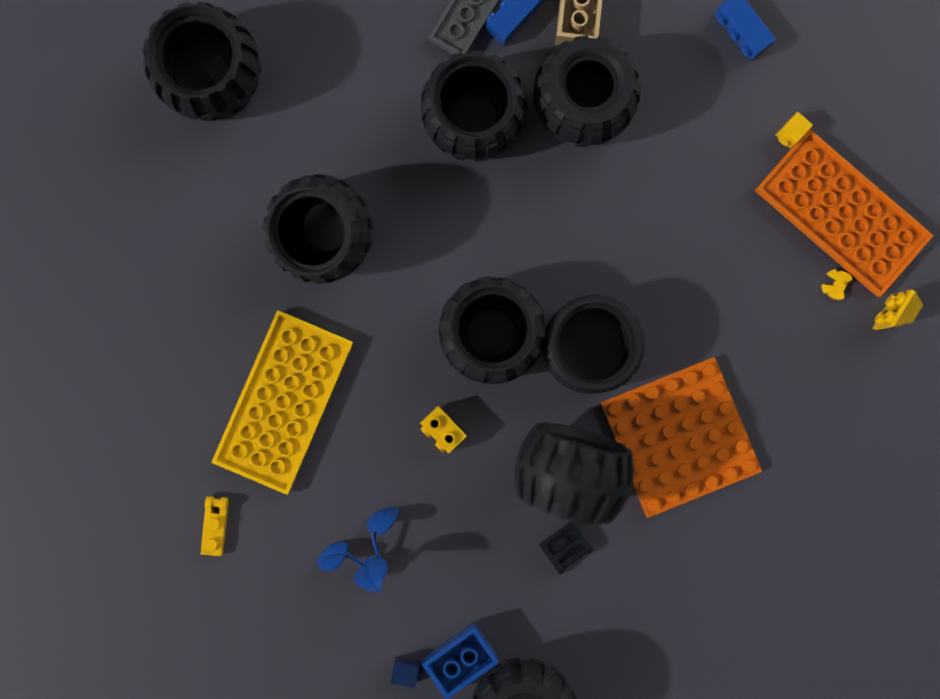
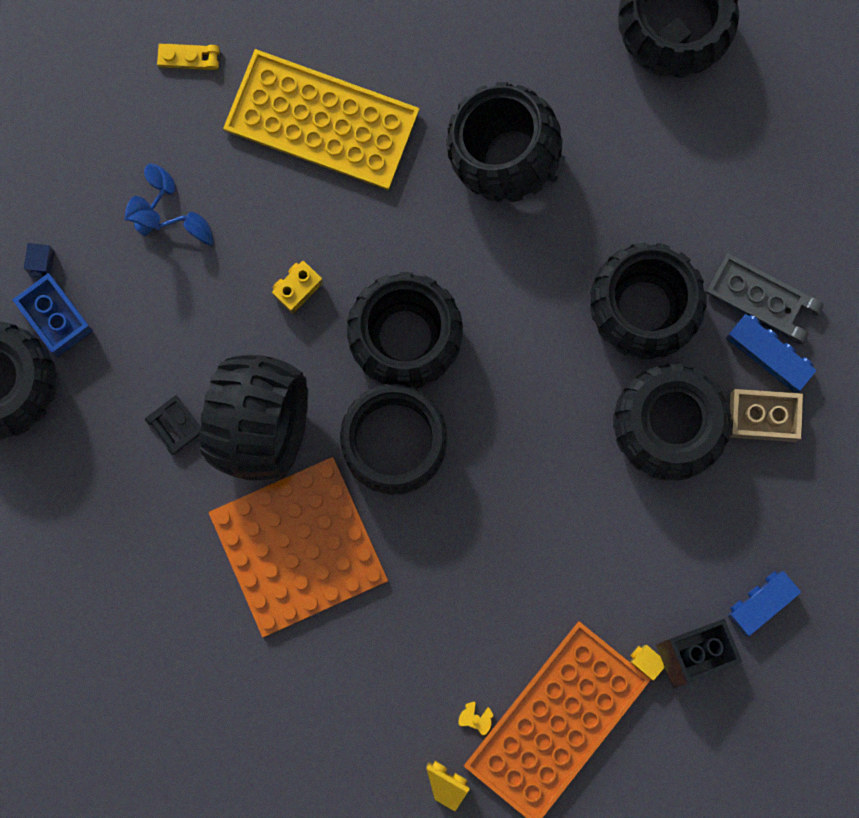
camera: 90 degrees right, 5 degrees down
(792, 83) = (698, 653): none -> black brick

